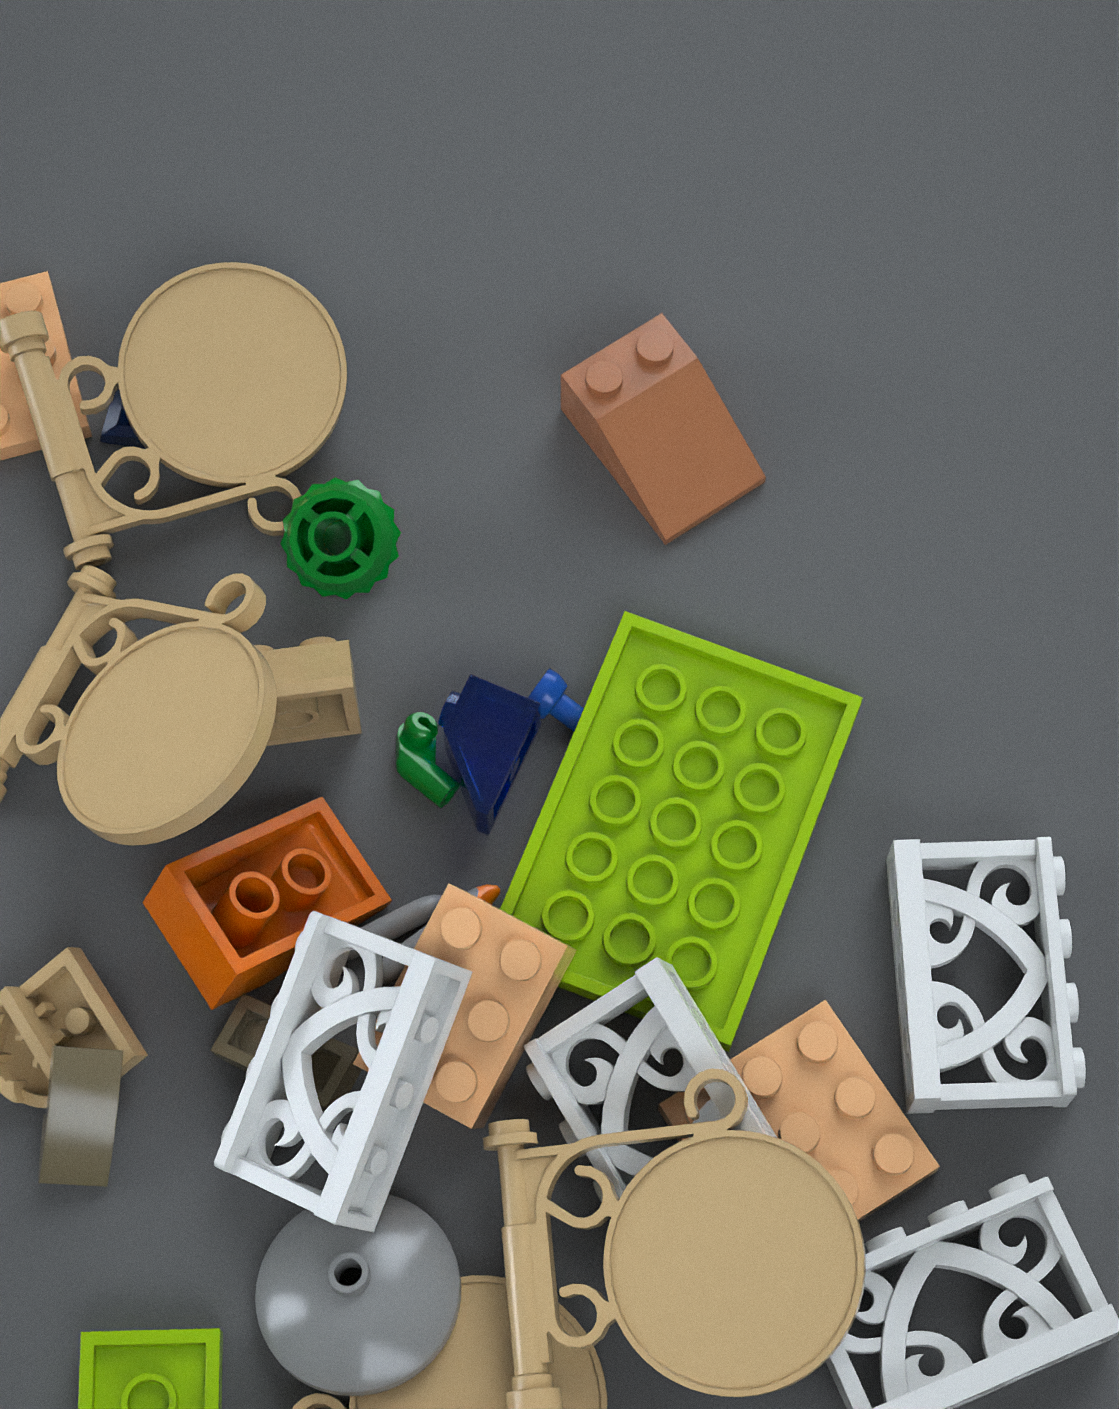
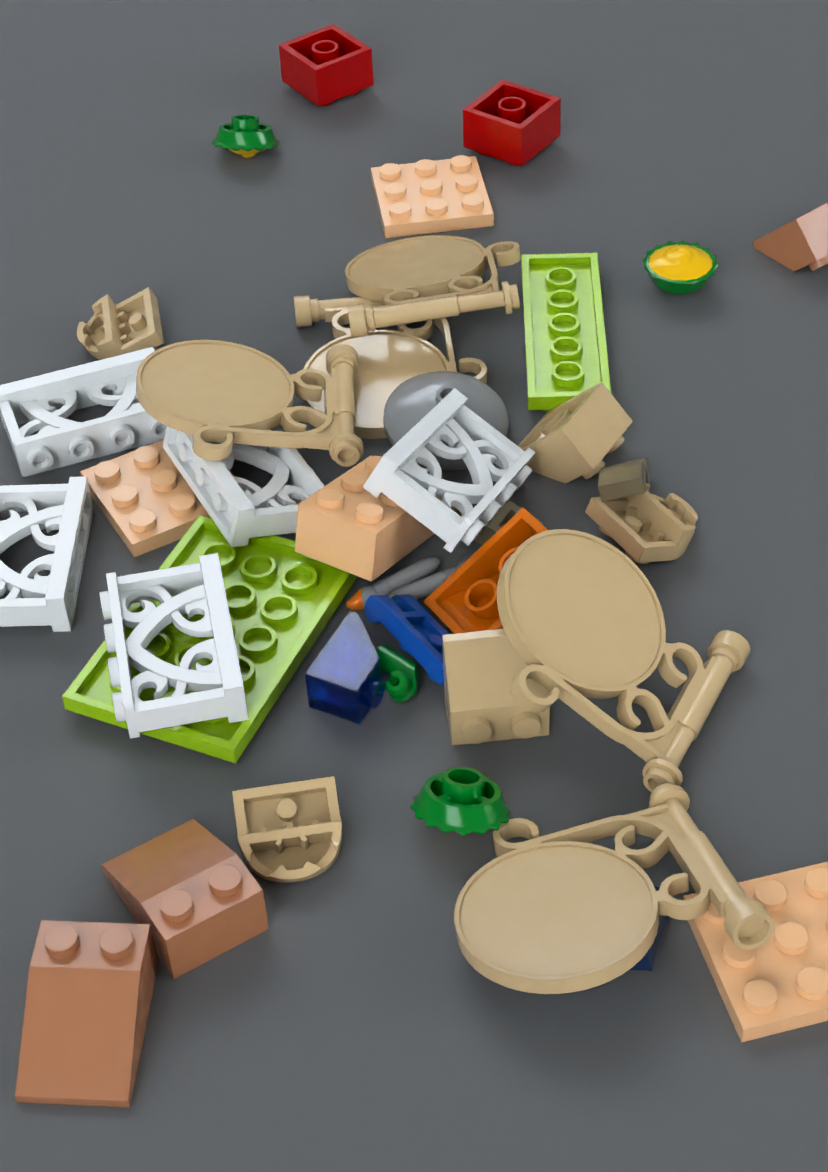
camera: 175 degrees left, 25 degrees down
(158, 1232) = (577, 435): none -> tan slope
(389, 805) = (413, 628): none -> blue plate
(545, 507) = (289, 829): none -> tan slope
(553, 701) = (301, 709): blue piece -> none
(691, 826) = (216, 687): none -> white fence
(743, 286) = (86, 1013): none -> nougat slope

